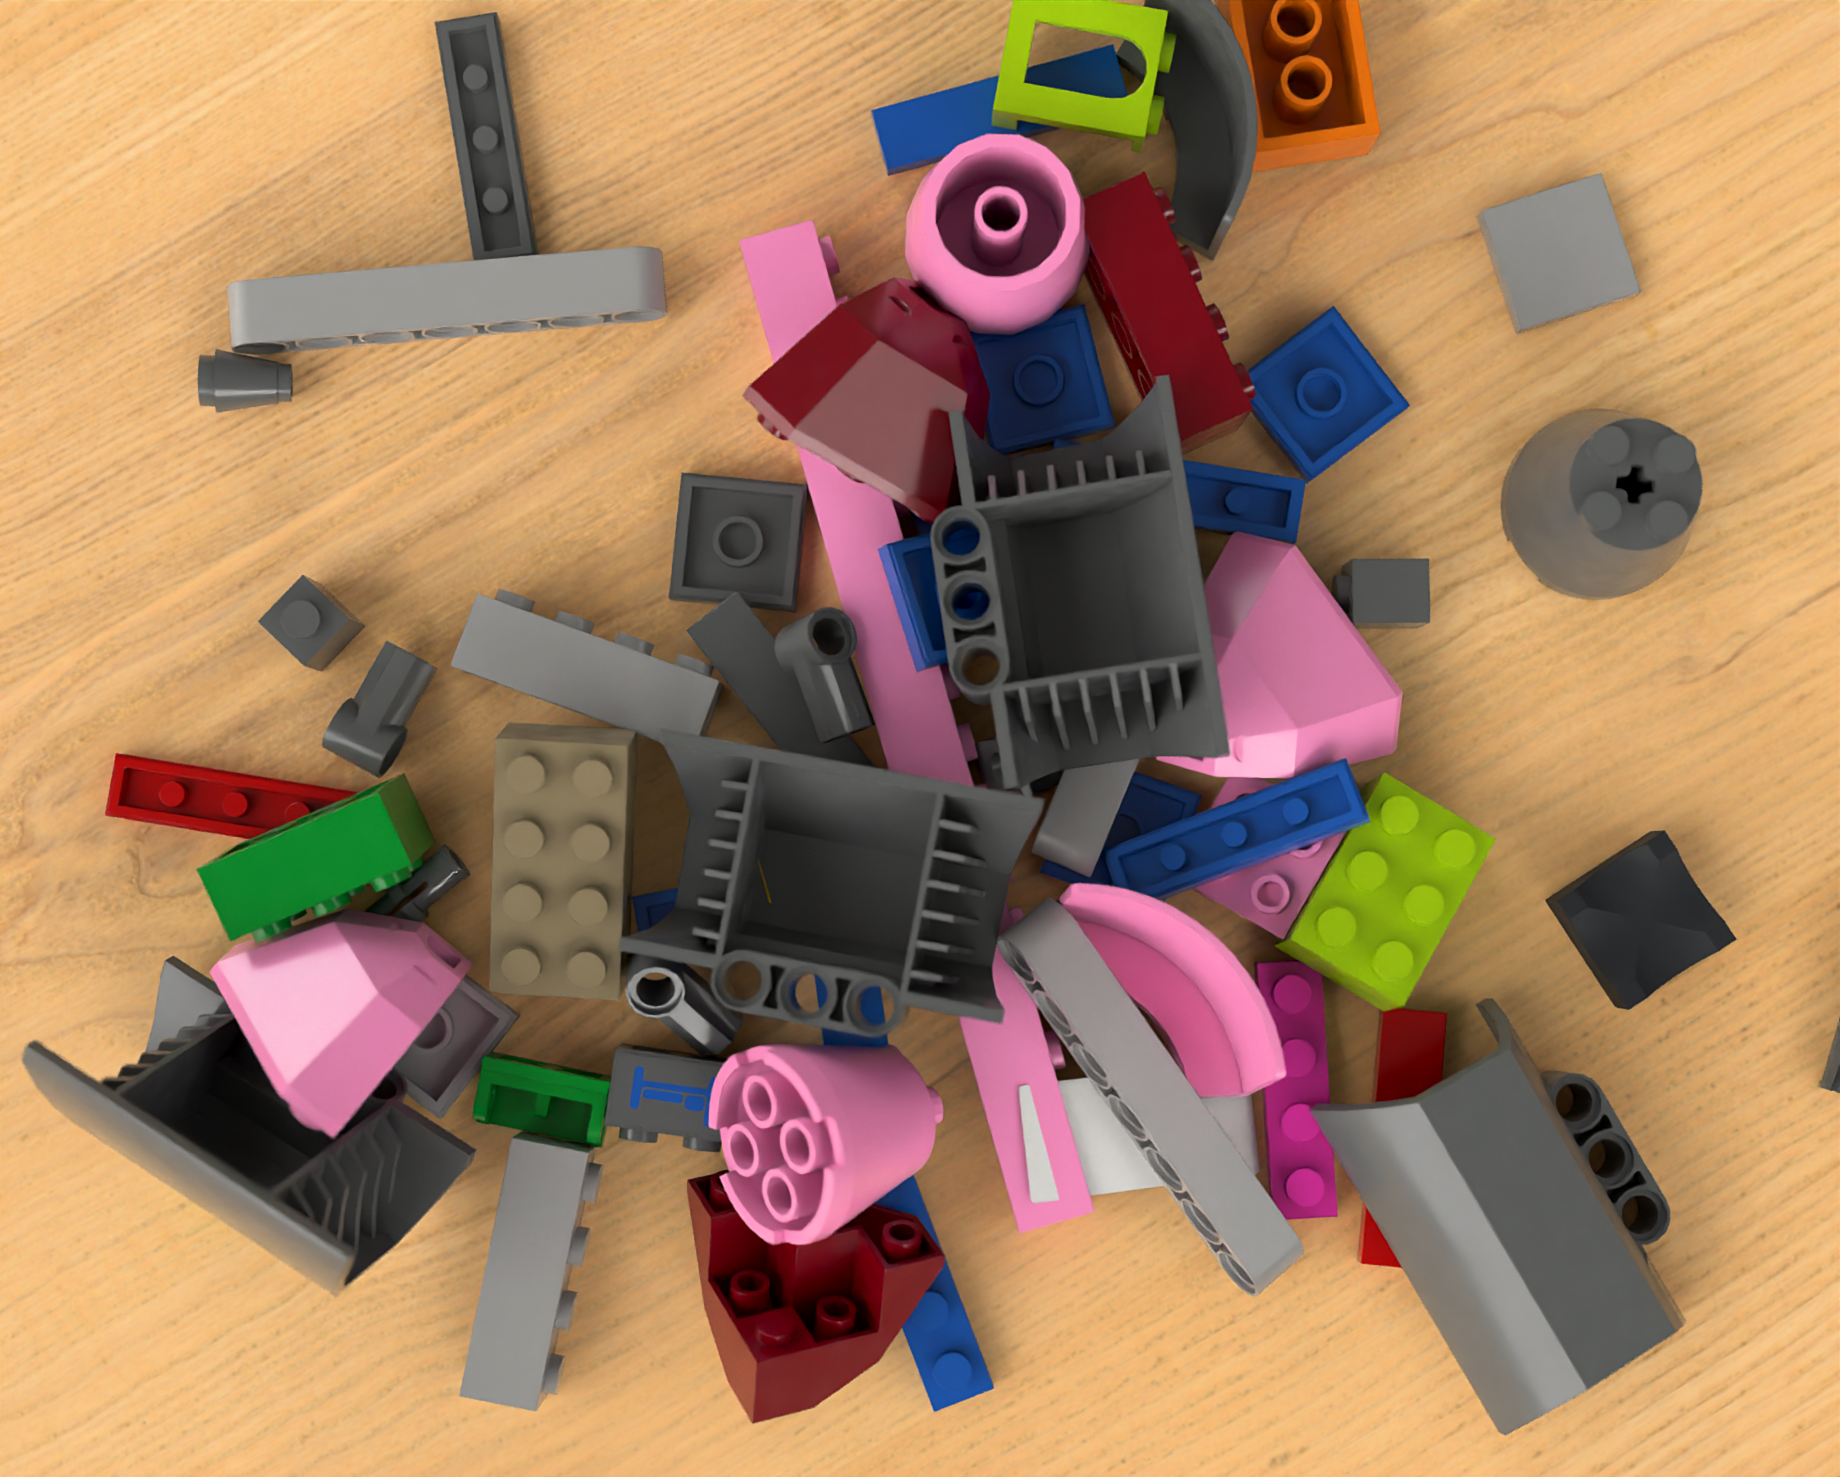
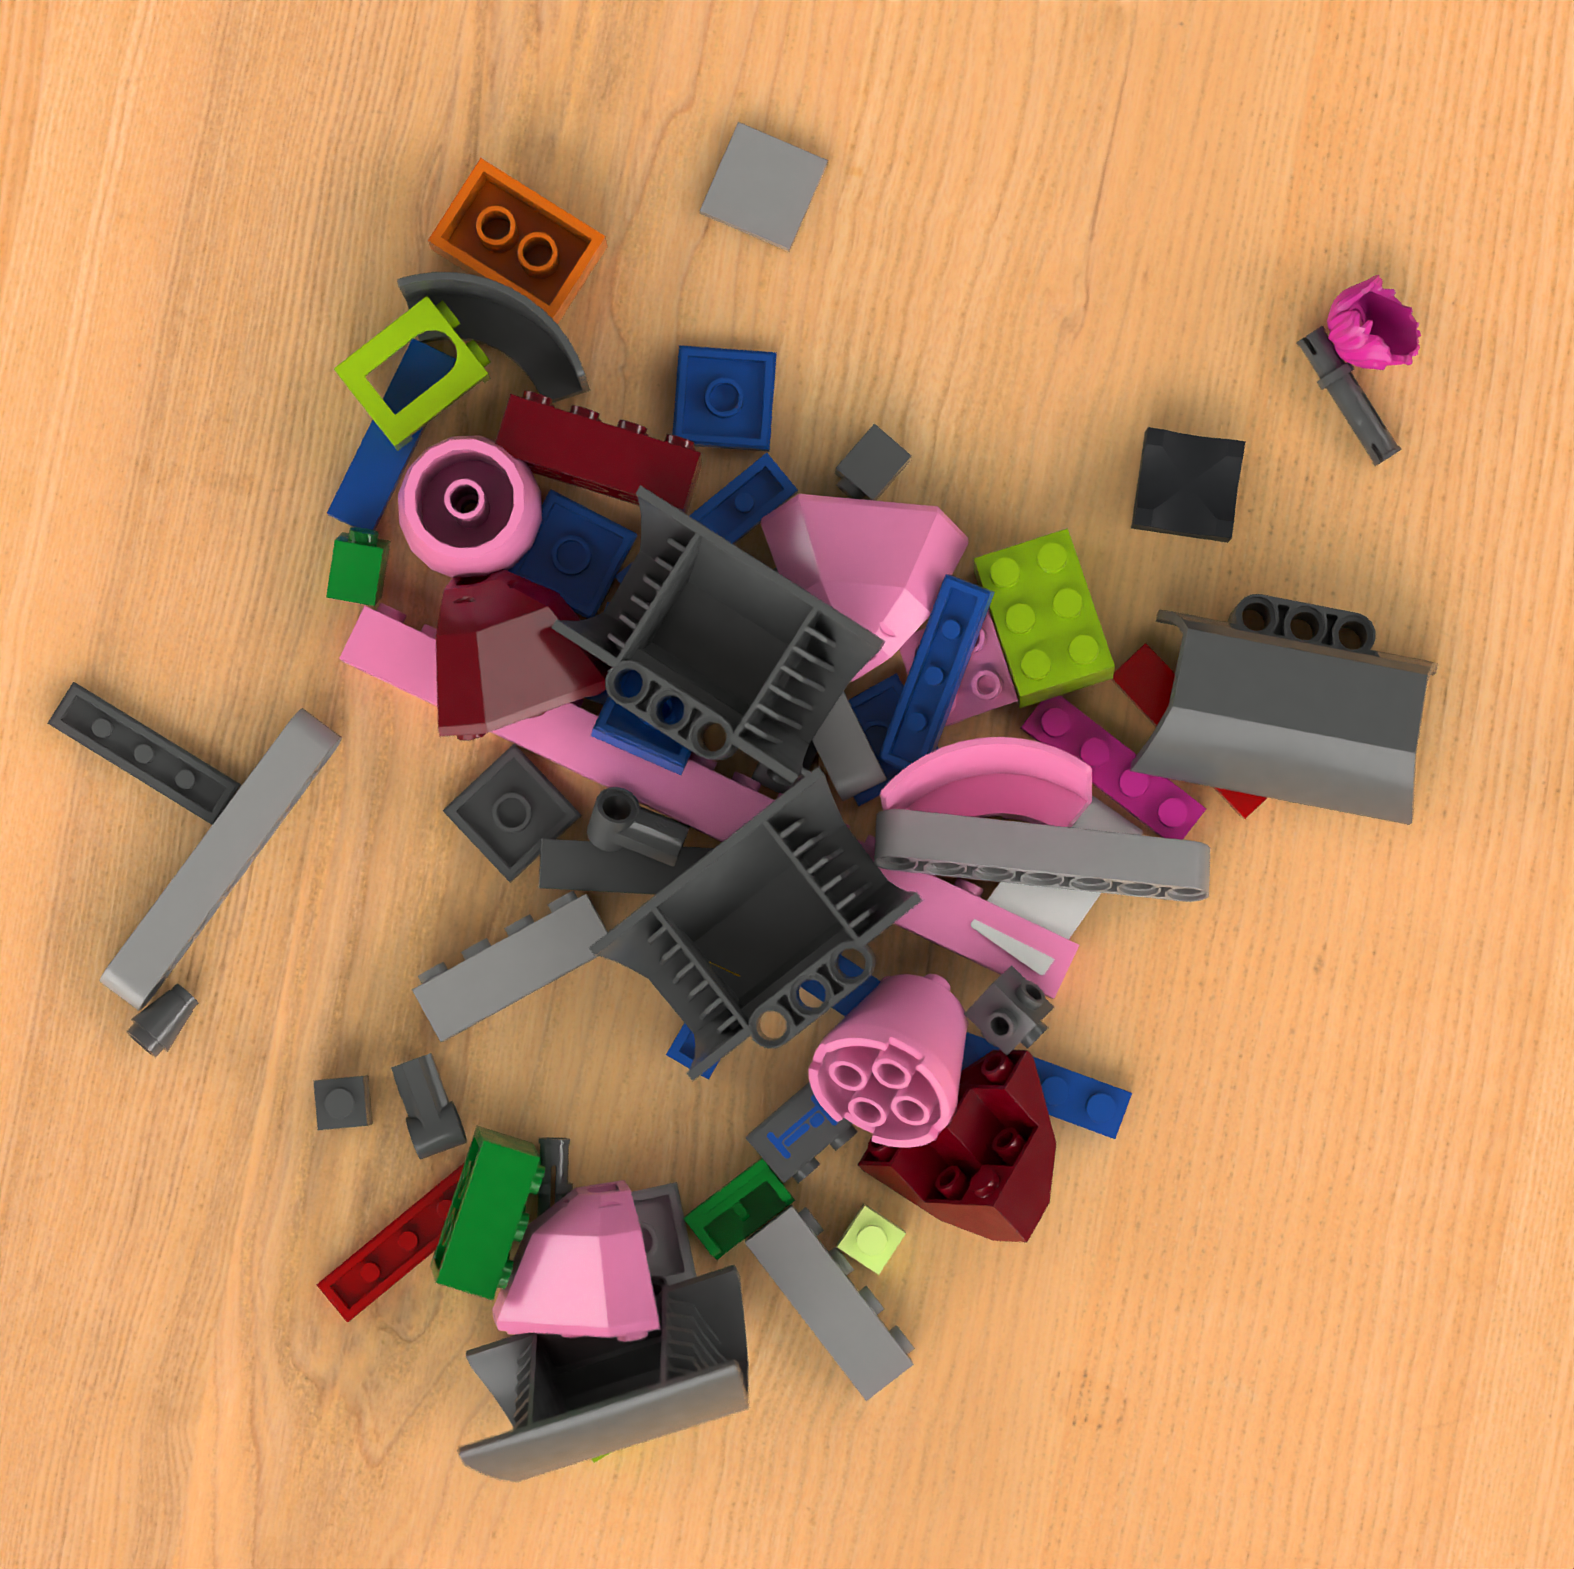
camera: 50 degrees left, 0 degrees up
(562, 860) = (611, 1074): dark tan brick -> none
(625, 1257) = (871, 1239): none -> yellowish green brick
(681, 1002) = (752, 1077): dark grey piece -> none
(845, 183) = (358, 567): none -> green brick
(968, 1204) = (1010, 1012): none -> dark grey brick
(1601, 502) = (929, 324): dark grey cone -> none

